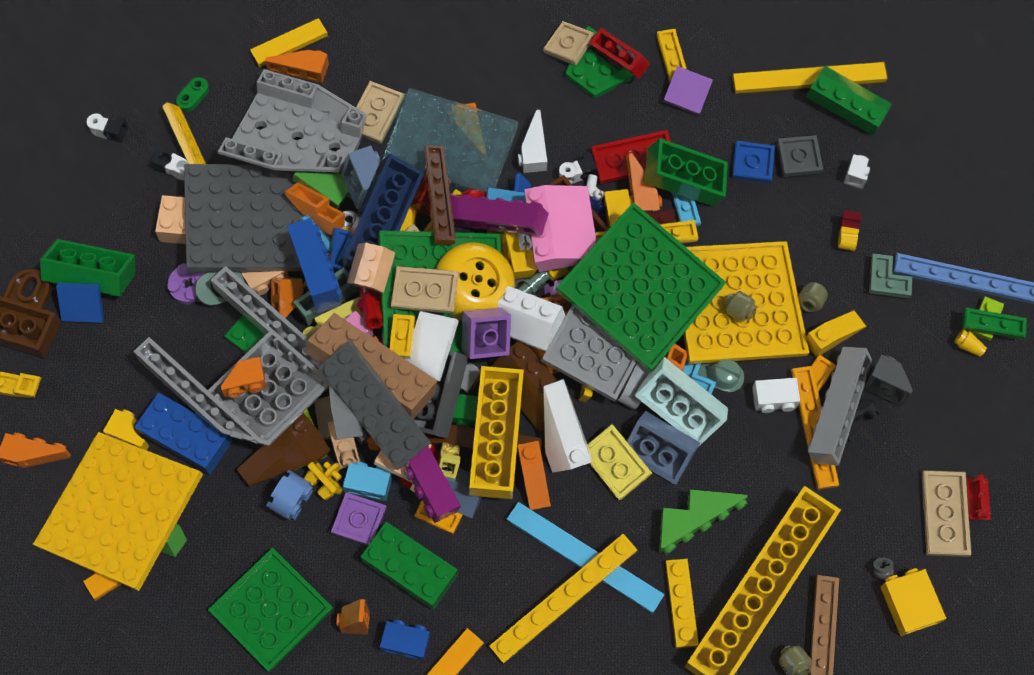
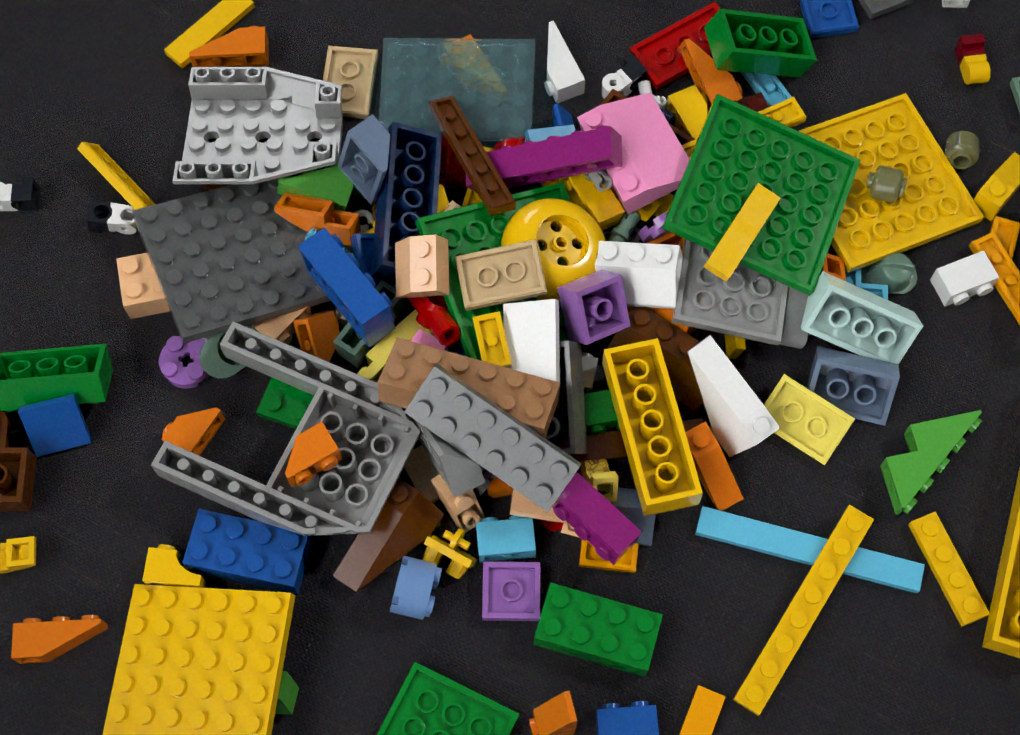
camera: 15 degrees left, 0 degrees up
(175, 336) = (194, 429): none -> orange slope
(195, 94) = (112, 123): green plate -> none
(612, 310) = (741, 232): none -> yellow tile

